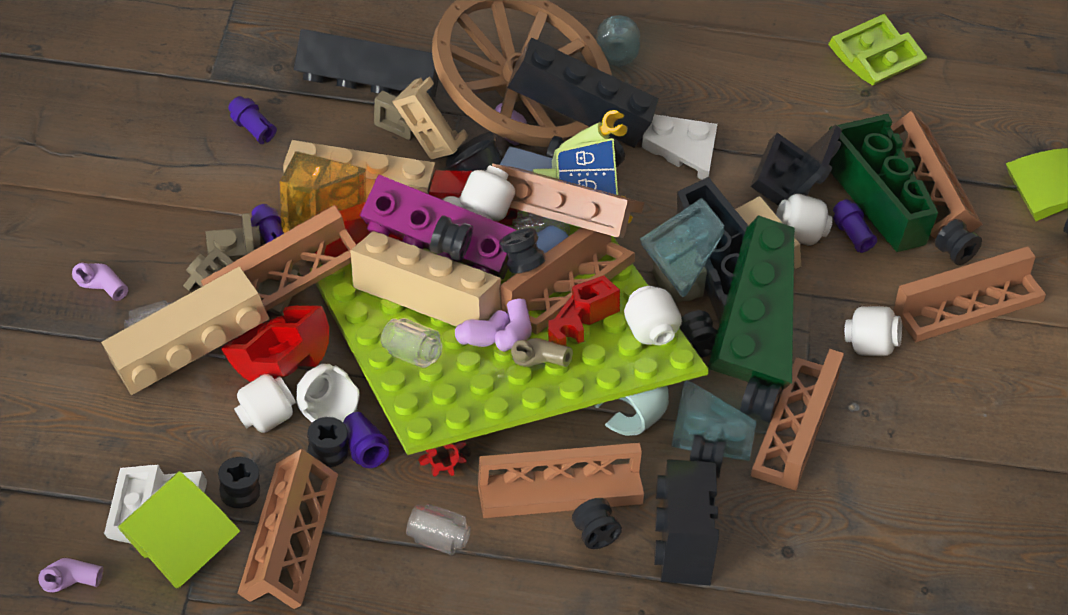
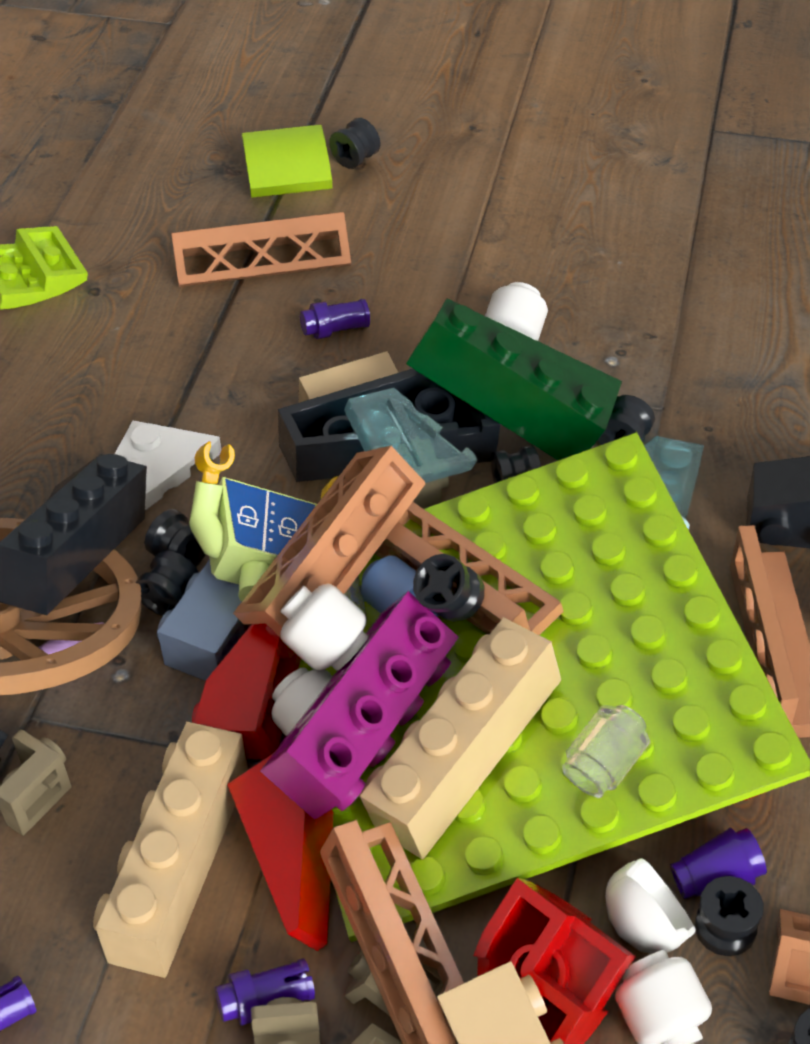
camera: 80 degrees left, 0 degrees up
(315, 185) = (225, 895): clear yellow slope -> none
(427, 121) = (77, 732): tan hinge -> none
(451, 238) = (432, 664): black wheel -> none
(475, 154) = (151, 686): black piece -> none
(481, 332) = (575, 668): lavender arm -> none
(518, 328) = (566, 617): lavender arm -> none
(539, 351) = (620, 594): dark tan arm -> none
(587, 305) = (508, 527): red piece -> none
(652, 315) = (565, 465): white head -> none
(708, 451) = (720, 483): black wheel -> none
(790, 170) = (244, 338): black bracket -> none
(804, 425) = (689, 395): nougat fence -> none
(807, 216) = (324, 347): white head -> none
(884, 182) = (279, 276): dark green wedge -> none
(958, 242) = (375, 236): black wheel -> none
(961, 289) = (445, 246): nougat fence -> none

